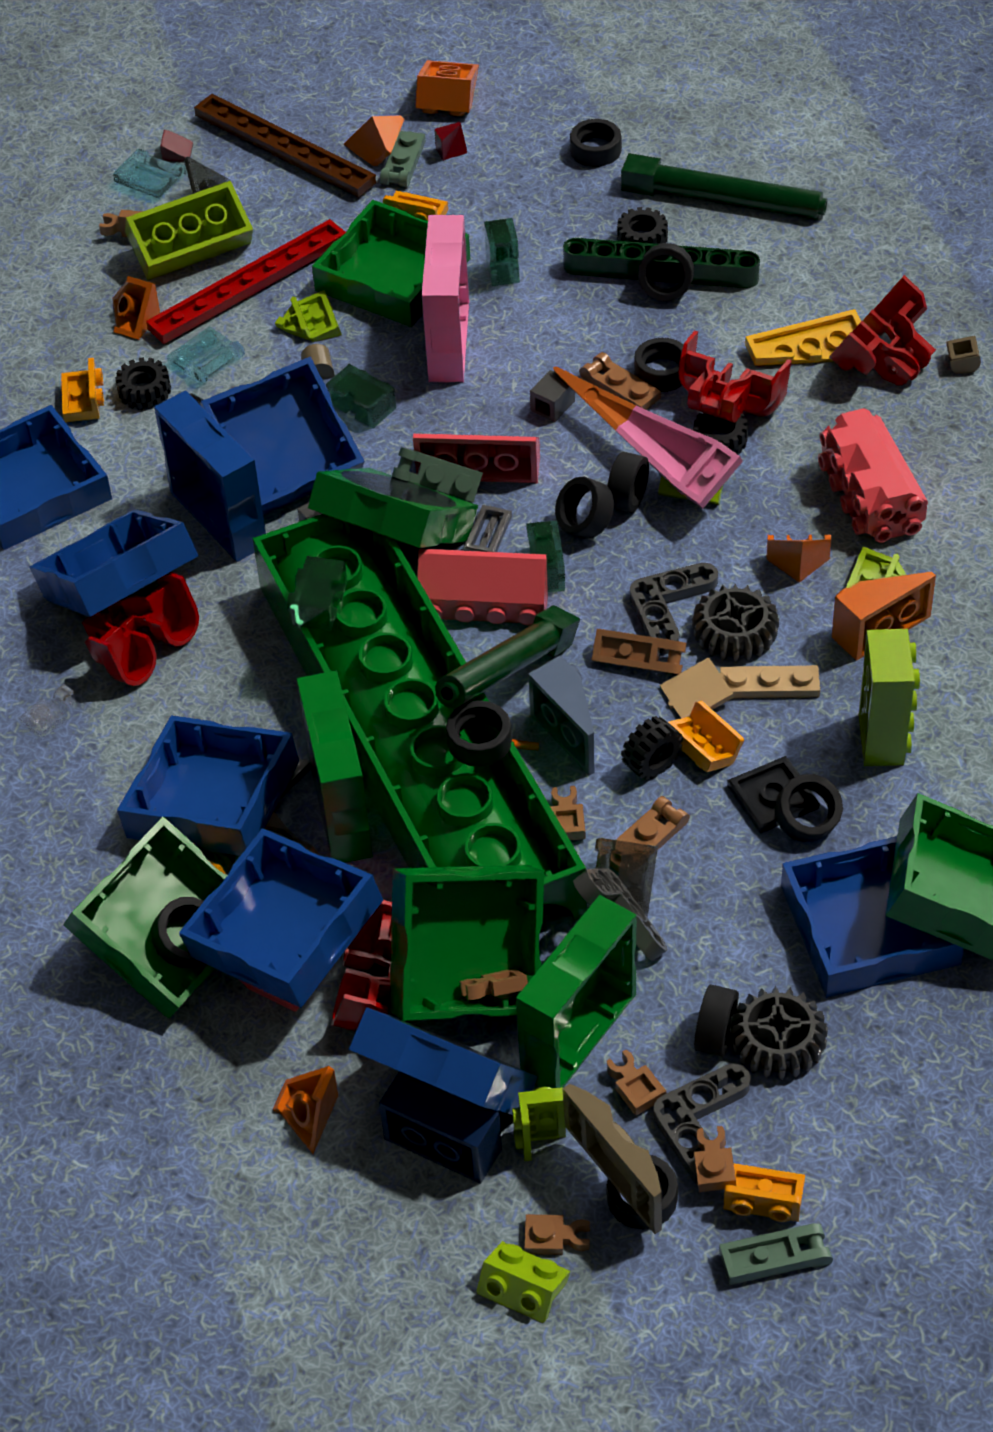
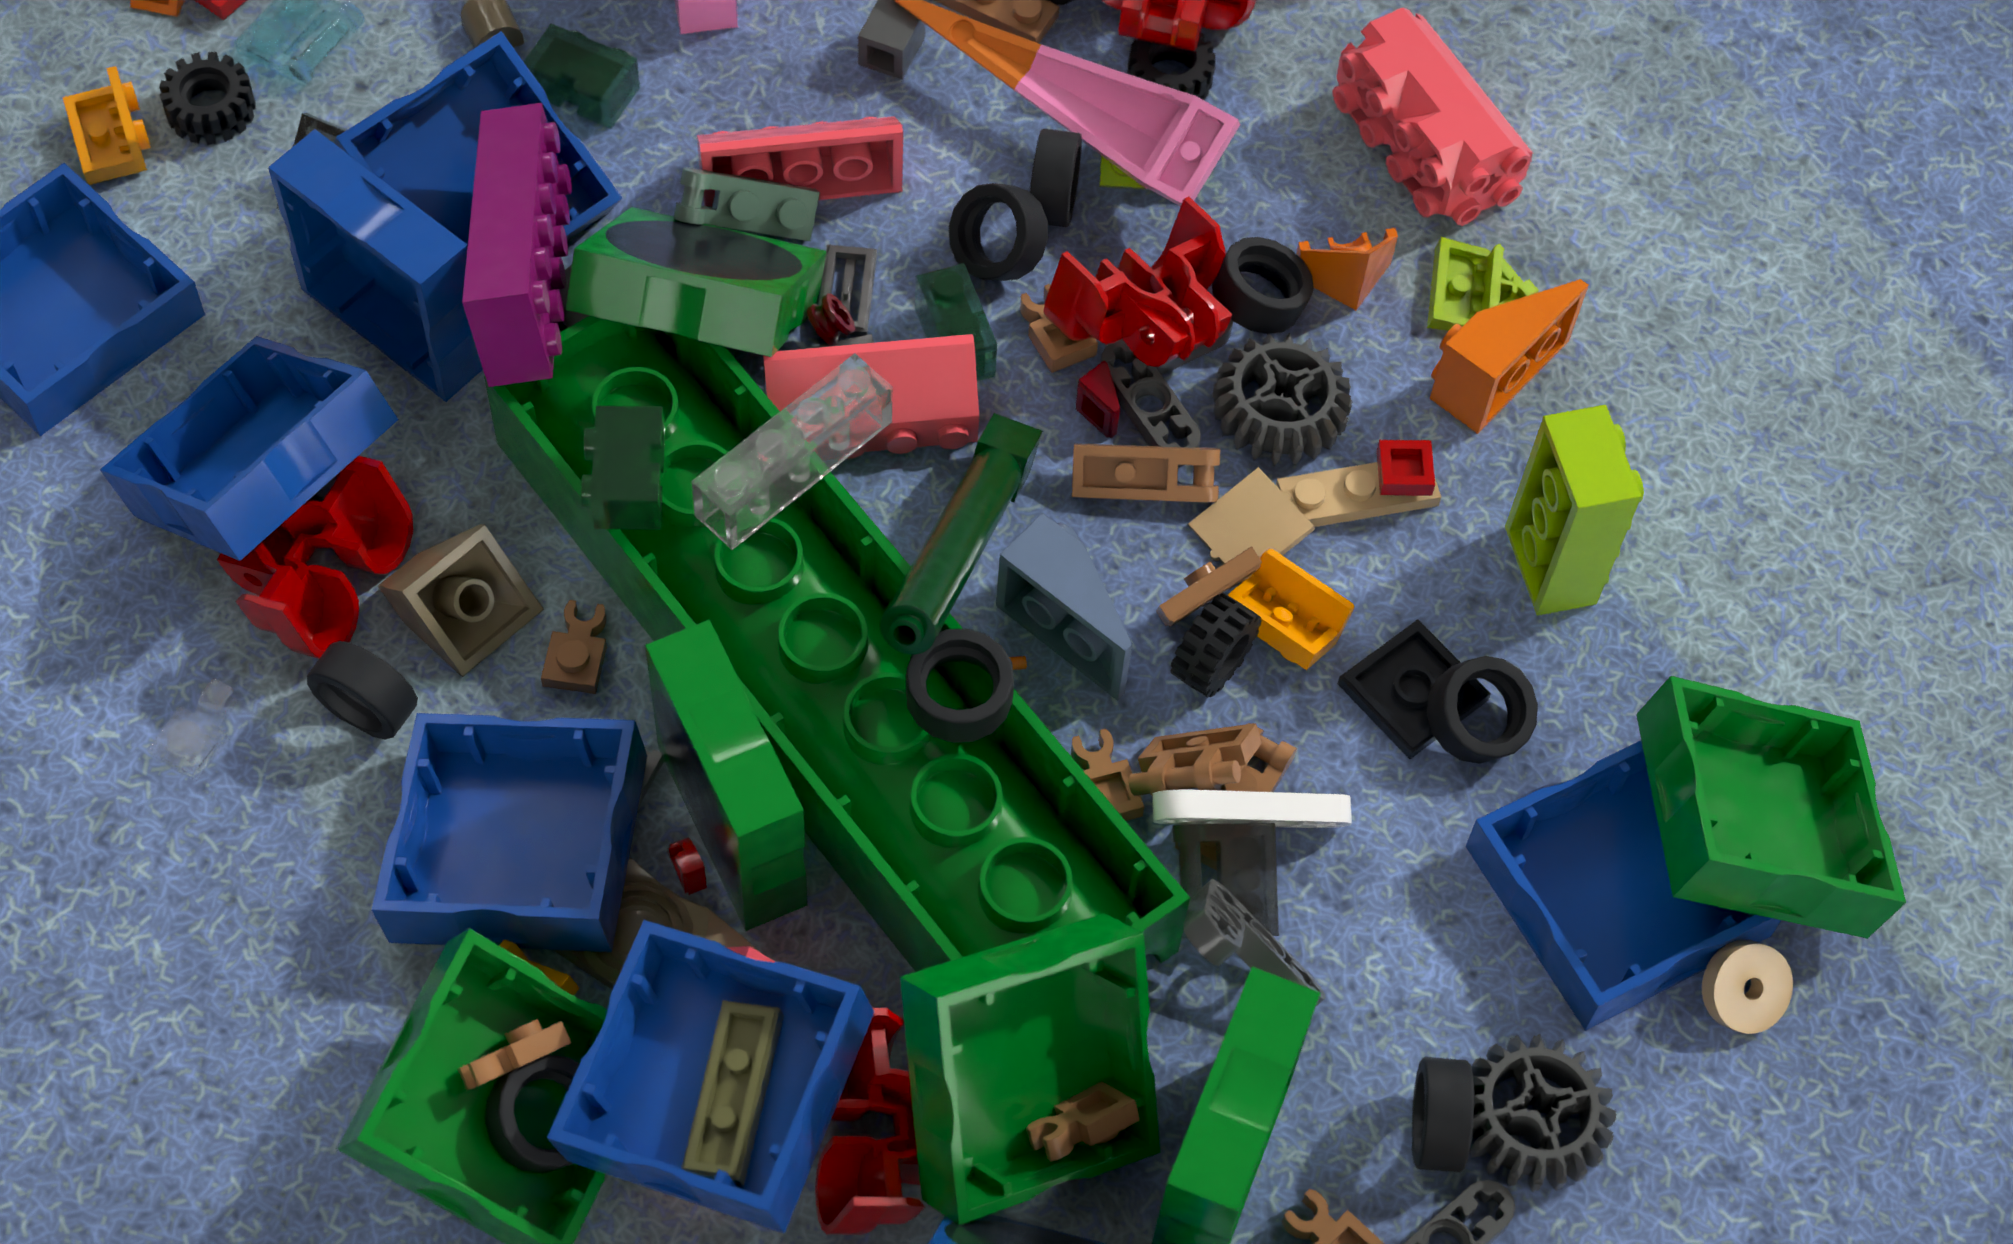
camera: 20 degrees left, 10 degrees up
(144, 700) = (362, 689): none -> black tyre
(179, 889) = (524, 1046): none -> medium nougat plate
(216, 663) = (462, 597): none -> dark tan slope
(274, 705) = (576, 657): none -> medium nougat plate
(286, 469) = (517, 245): none -> magenta brick
(293, 925) = (733, 1090): none -> olive tile
(307, 824) = (687, 865): none -> red tile
(416, 596) = (792, 451): none -> clear brick
(470, 540) = (830, 319): none -> dark red bush
(608, 570) = (1049, 341): none -> medium nougat plate
(620, 608) = (1098, 399): none -> dark red slope
(620, 807) = (1195, 759): none -> medium nougat plate
(660, 558) = (1154, 309): none -> red piece
(668, 705) = (1206, 584): none -> medium nougat plate
(669, 842) = (1237, 807): none -> white beam
(747, 544) = (1277, 265): none -> black tyre
(799, 668) = (1405, 467): none -> red tile
(915, 984) = (1725, 983): none -> tan piece

